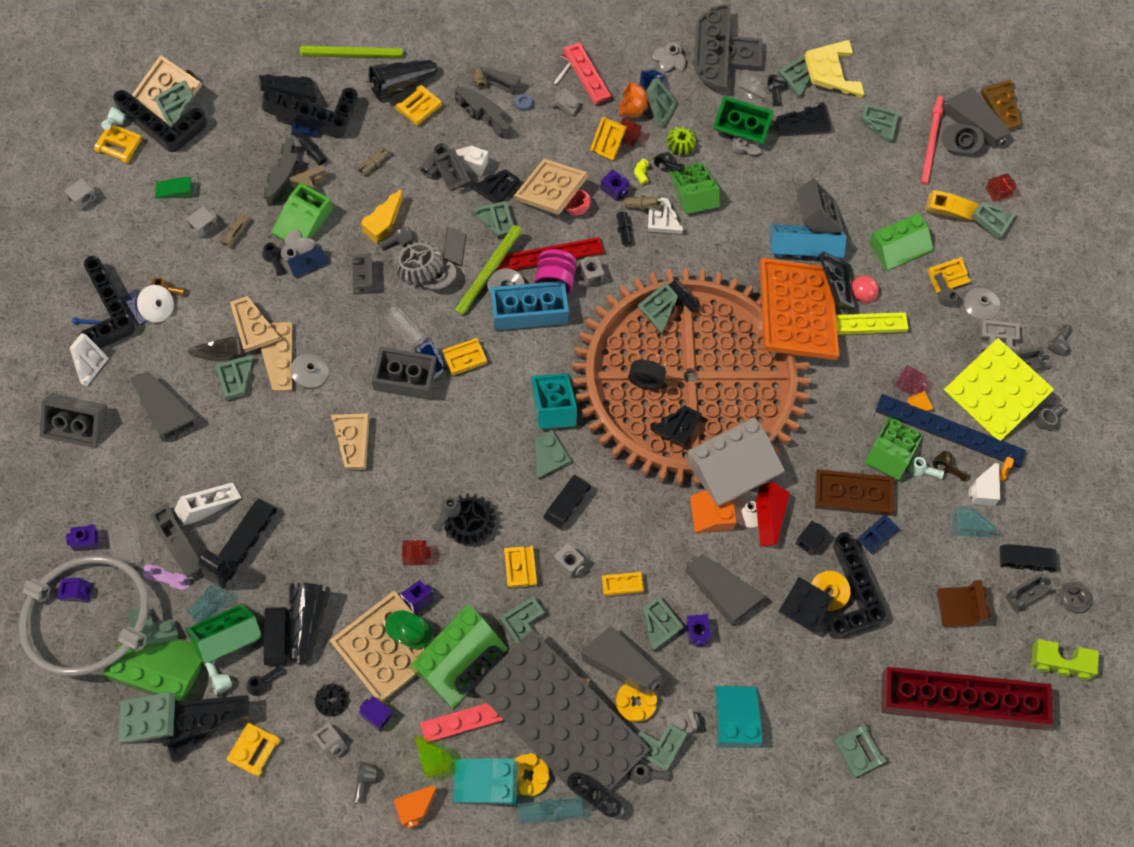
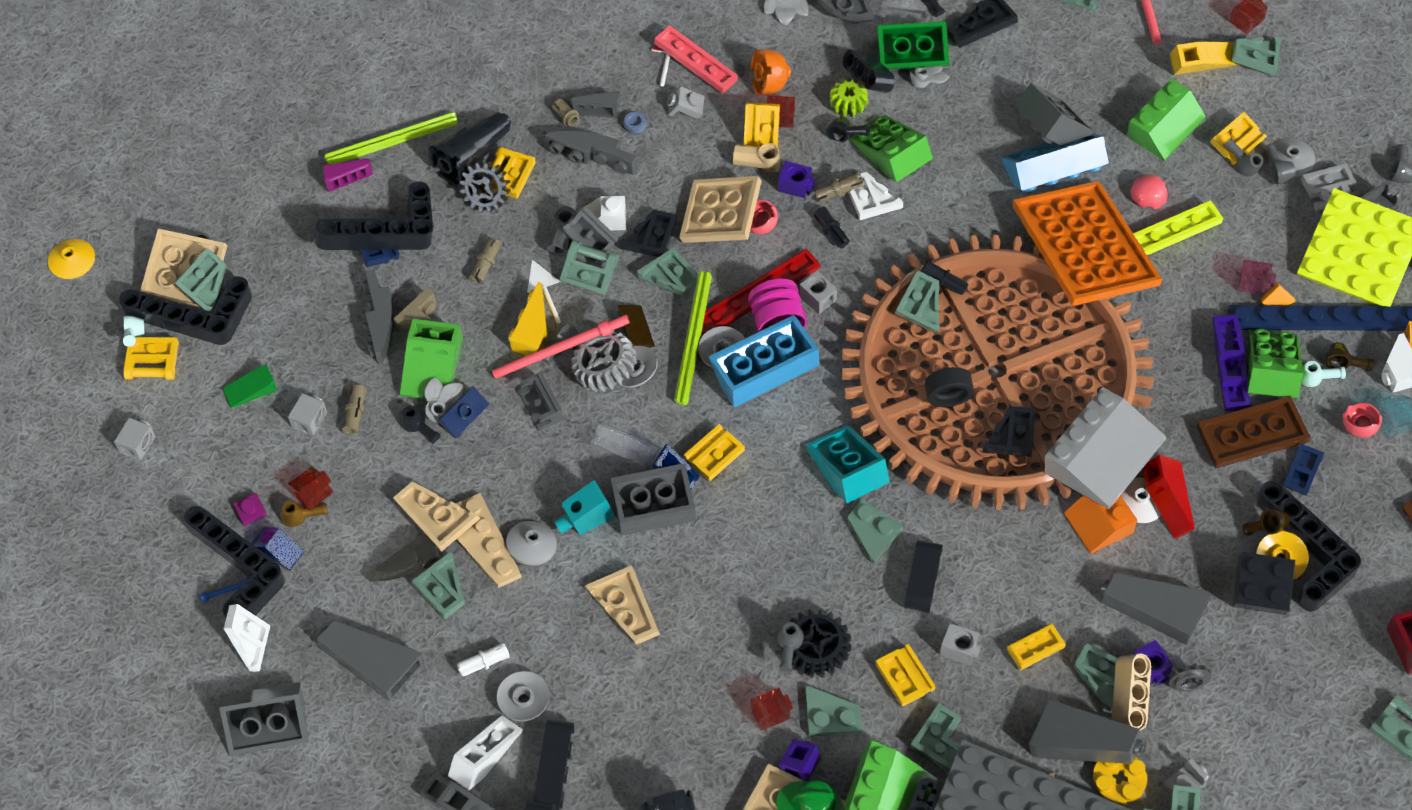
camera: 15 degrees left, 5 degrees down
(101, 59) = (74, 265): none -> yellow dish
(133, 272) = (250, 509): none -> magenta plate
(147, 303) = (291, 538): white dish -> none
(179, 273) = (311, 487): none -> clear red brick
(237, 438) = (483, 659): none -> white axle
(247, 467) = (519, 685): none -> light grey dish
(295, 86) = (343, 205): black wing -> none
(308, 64) = (346, 173): none -> magenta slope
(312, 150) = (402, 275): black axle -> none
(355, 362) = (585, 510): none -> teal torso
(396, 108) = (485, 186): none -> gear
(407, 188) = (539, 274): none -> white piece
(426, 239) = (604, 328): none -> coral bar
(436, 197) = (586, 275): none -> sand green plate
(455, 573) = (831, 714): none -> sand green wing
(600, 160) = (758, 157): none -> tan piece
(640, 171) = (816, 152): neon yellow arm -> none
(648, 75) = (778, 39): clear blue slope -> none
(661, 102) = (803, 61): sand green wing -> none
(663, 649) = (1132, 690): none -> tan beam
(703, 126) = (868, 71): none -> black beam
(719, 651) = (1189, 678): none -> flat silver gear
(737, 717) = (1248, 747): teal slope -> none
(811, 537) = (1230, 503): black brick -> none
(833, 562) = (1271, 521): none -> dark brown bar
(839, 280) = (1116, 191): black wing -> none
(862, 436) = (1230, 362): none -> dark purple slope
(944, 514) = (1367, 416): none -> coral hair
(969, 310) = (1281, 170): none -> dark grey bar

